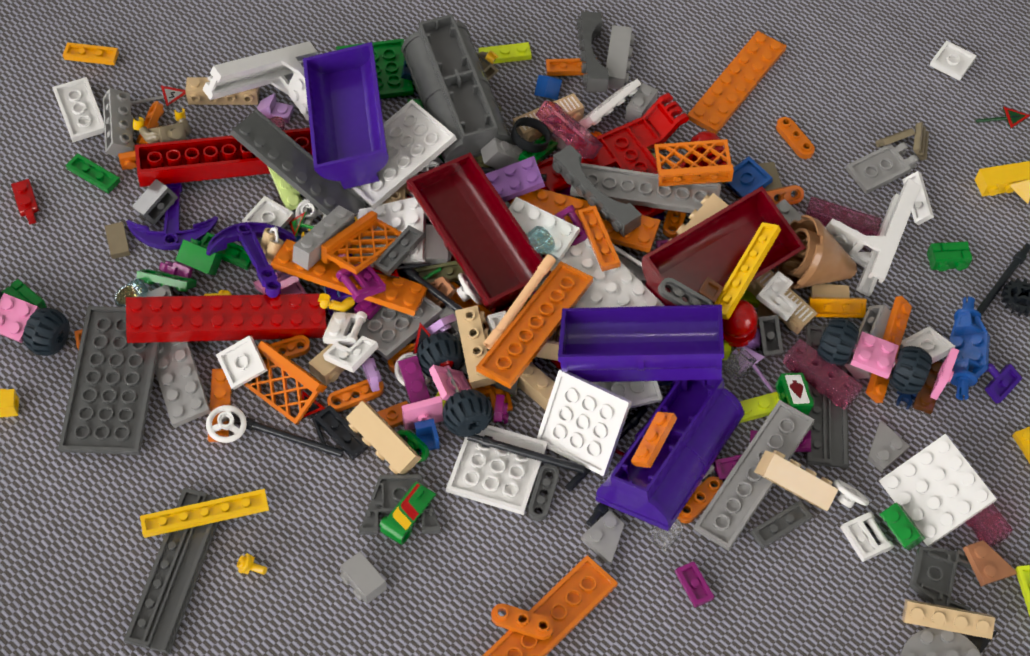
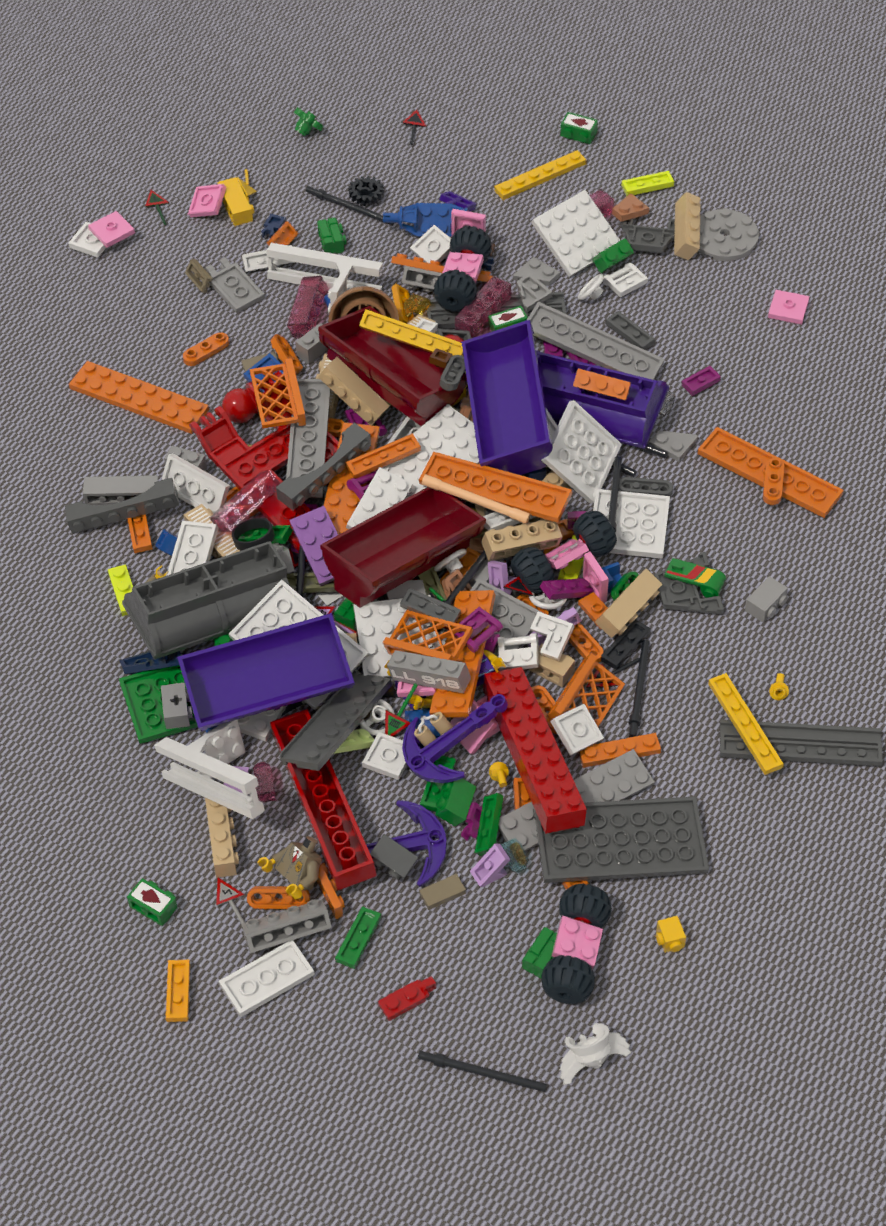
camera: 95 degrees left, 5 degrees down
(124, 275) = (490, 866): none -> lavender slope
(175, 43) = (152, 901): none -> brick
(226, 416) = (645, 729): white piece -> none
(523, 93) = (193, 545): none -> white plate
(541, 240) = (407, 485): clear light blue rock -> none
(796, 480) = (597, 312): tan brick -> none
(834, 310) = (416, 304): none -> clear yellow bracket
(843, 427) = (532, 291): none -> light grey wing
(921, 141) = (201, 258): dark tan tile -> none
(949, 213) = (284, 235): none -> orange plate
(962, 71) = (111, 229): none -> bright pink plate
(970, 208) = (272, 224): none -> dark blue plate
(1004, 152) = (207, 200): none -> bright pink plate

